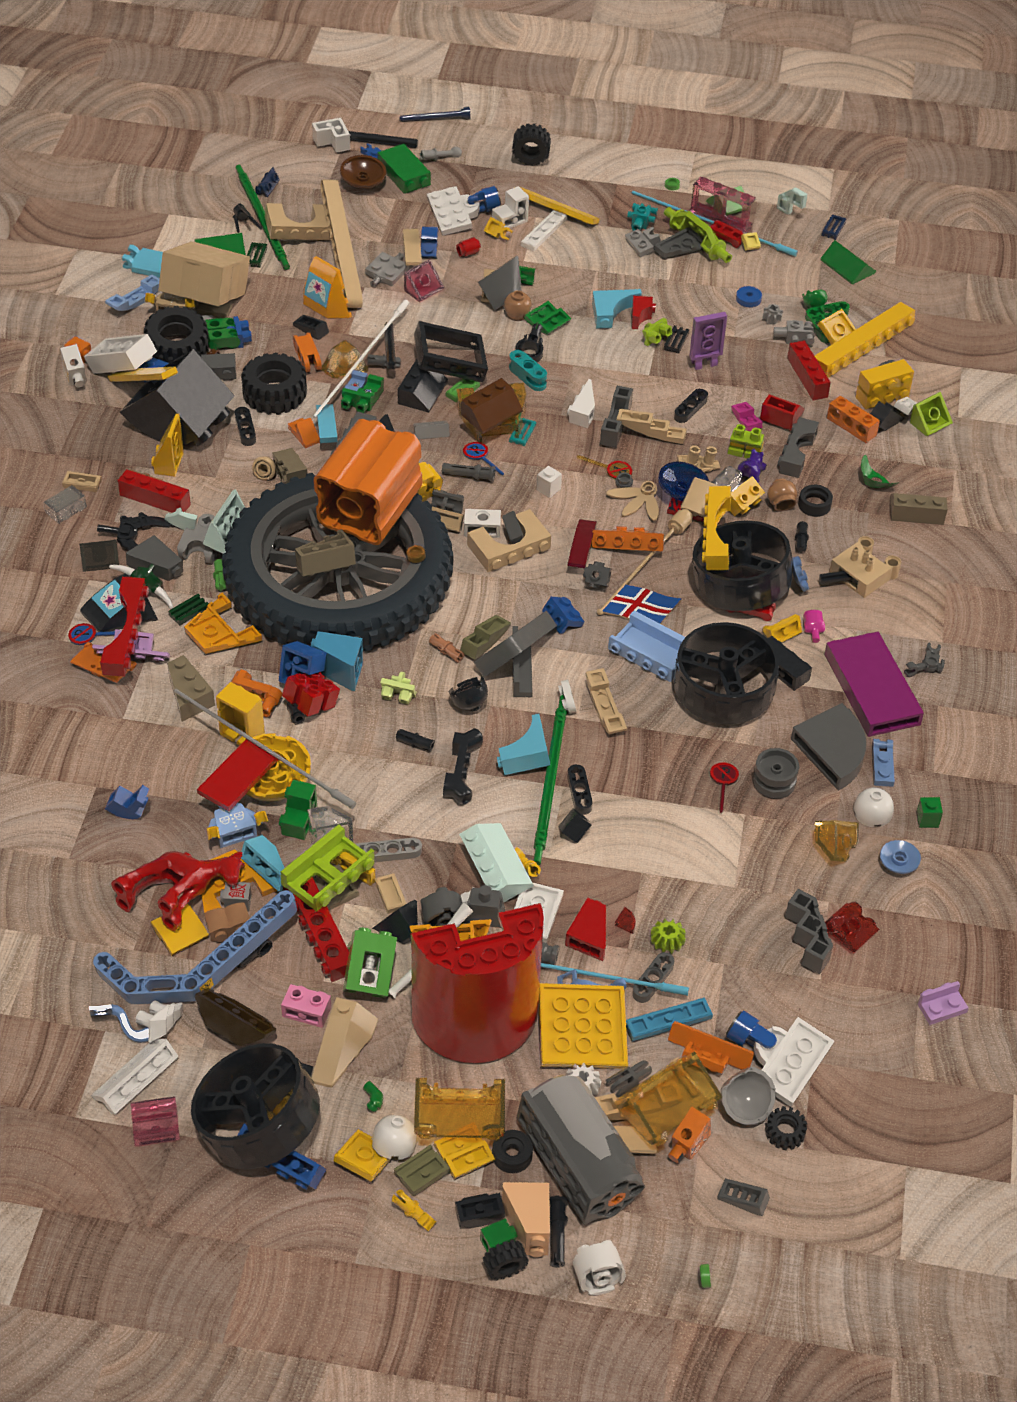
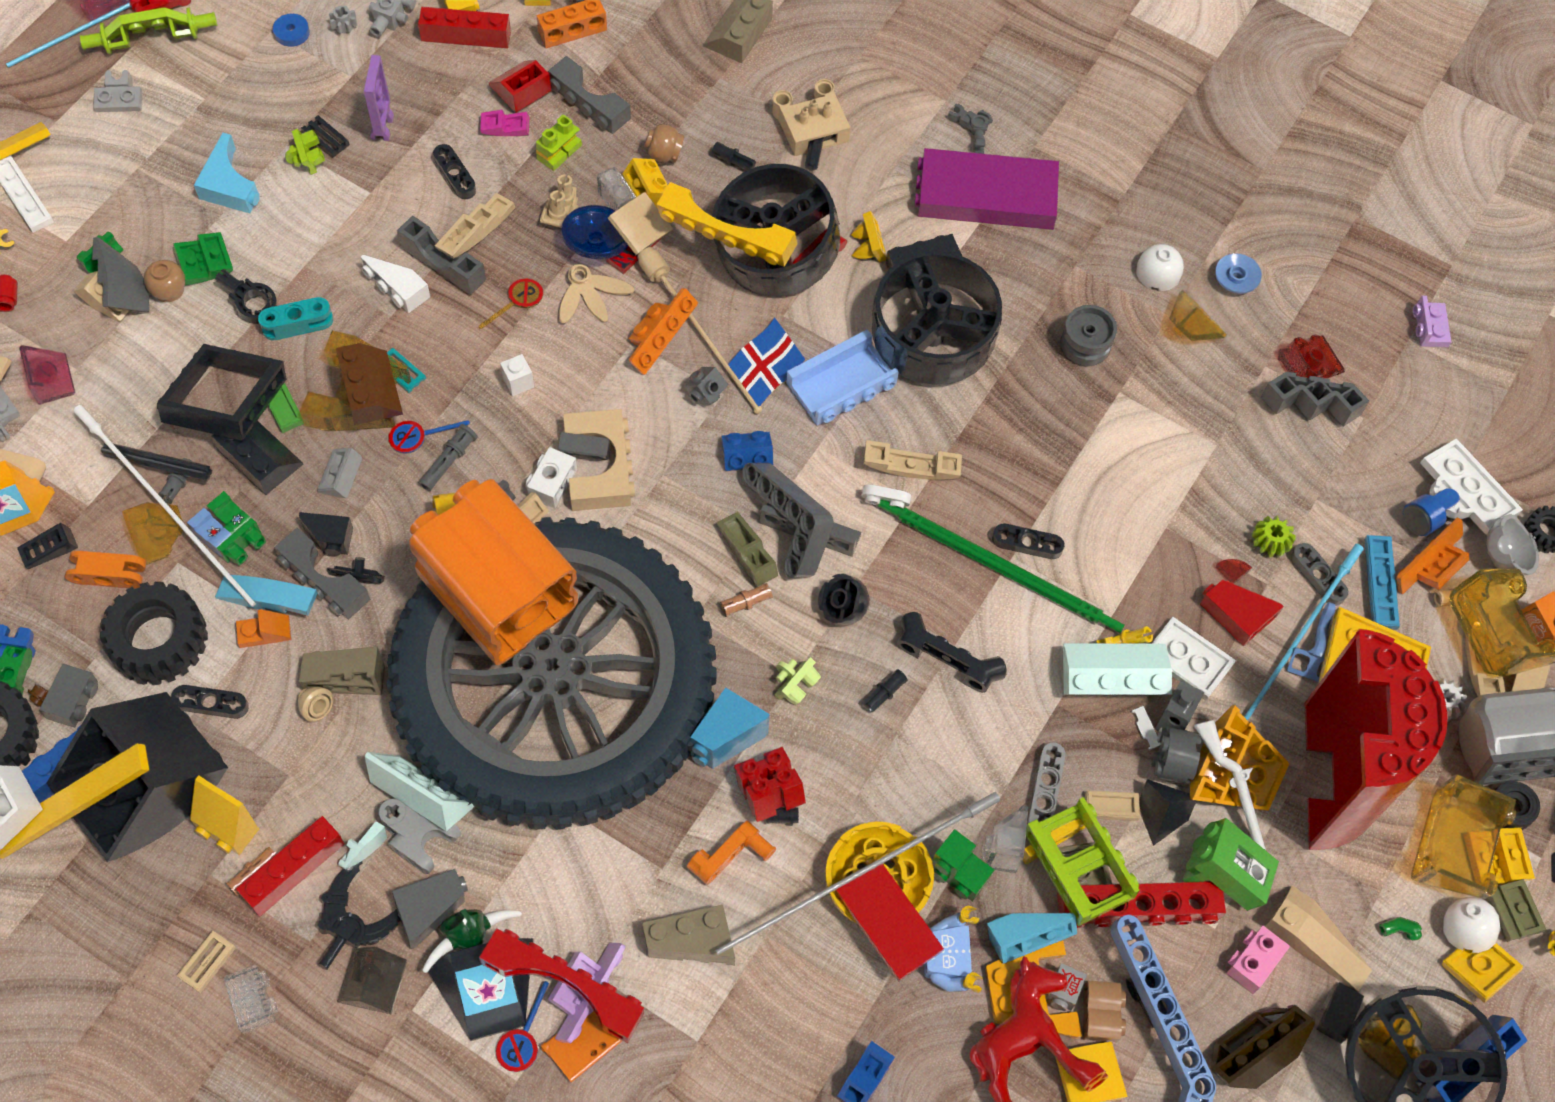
camera: 70 degrees left, 15 degrees up
(186, 607) = (530, 870): dark green tile -> none
(213, 633) = (594, 874): light orange wing -> none
(220, 583) = (492, 829): bright green axle -> none
(241, 710) = (795, 875): yellow piece -> none
(301, 659) = (725, 773): blue brick -> none
(325, 555) = (573, 675): dark tan wedge -> none
(416, 554) = (616, 569): pearl gold tile -> none
(527, 752) = (961, 565): medium azure arch -> none
(549, 953) = (1261, 666): dark grey wheel -> none
(575, 825) = (1084, 567): black panel -> none
(582, 543) = (645, 383): dark red slope -> none
(624, 480) = (551, 294): dark grey plate -> none
(629, 1078) = (1450, 651): dark grey arm -> none
(642, 216) = (69, 74): teal piece -> none
(642, 310) = (251, 149): red arch -> none
(672, 184) = (20, 16): bright green tile -> none
(679, 243) = (150, 55): dark grey wing -> none
(724, 774) = (1059, 387): piece -> none
(752, 465) = (597, 155): dark purple animal -> none
(814, 623) = (875, 203): dark pink piece -> none
(817, 491) = (686, 104): black tyre -> none
(833, 744) = (1063, 263): dark grey brick -> none
(868, 473) = (684, 43): green piece -> none
(883, 763) = (1098, 231): medium blue plate -> none
(929, 812) = (1189, 220): green brick -> none

